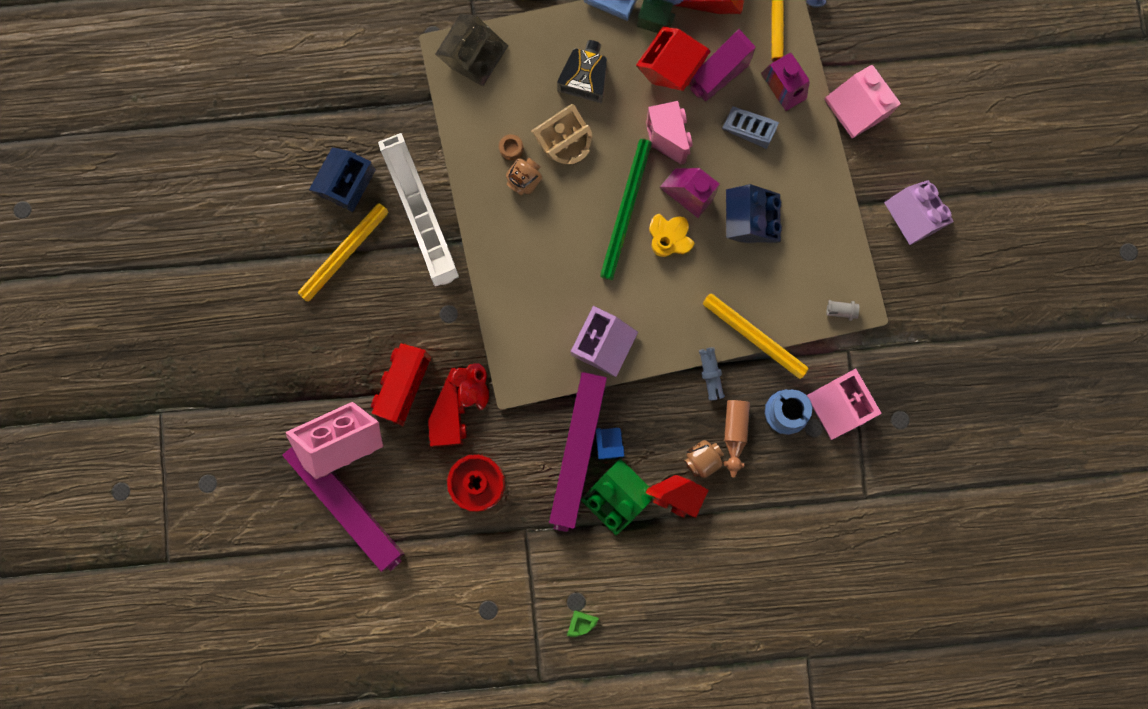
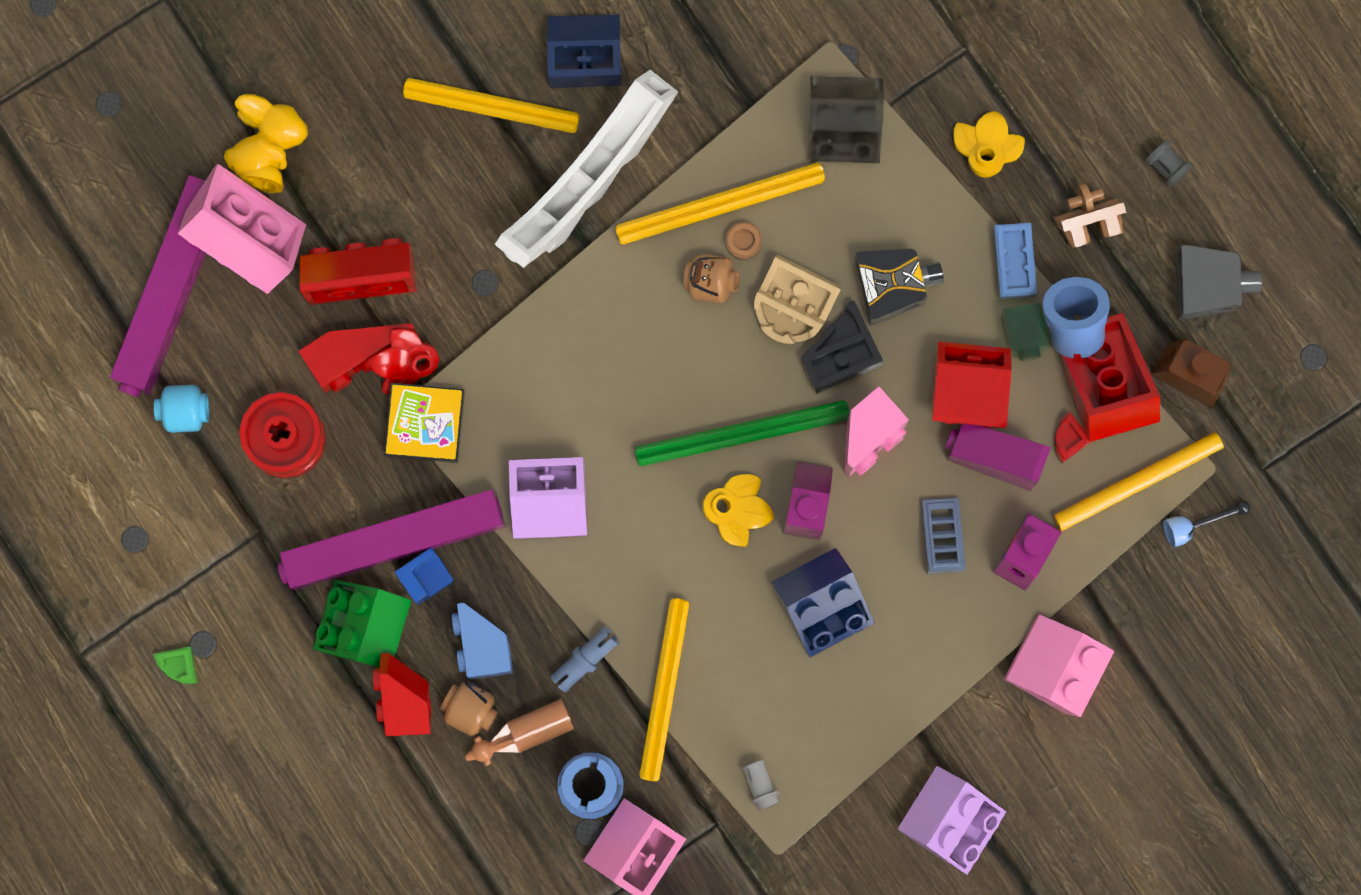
camera: 60 degrees right, 0 degrees up
(295, 403) = (262, 155): none -> yellow animal
(424, 537) = (182, 408): none -> medium azure head
(480, 148) = (720, 203): none -> yellow axle
(516, 393) = (424, 423): none -> tile
(609, 125) = (842, 351): none -> black wing
(671, 429) = (484, 645): none -> medium blue slope
(729, 24) = (1069, 438): none -> red tile

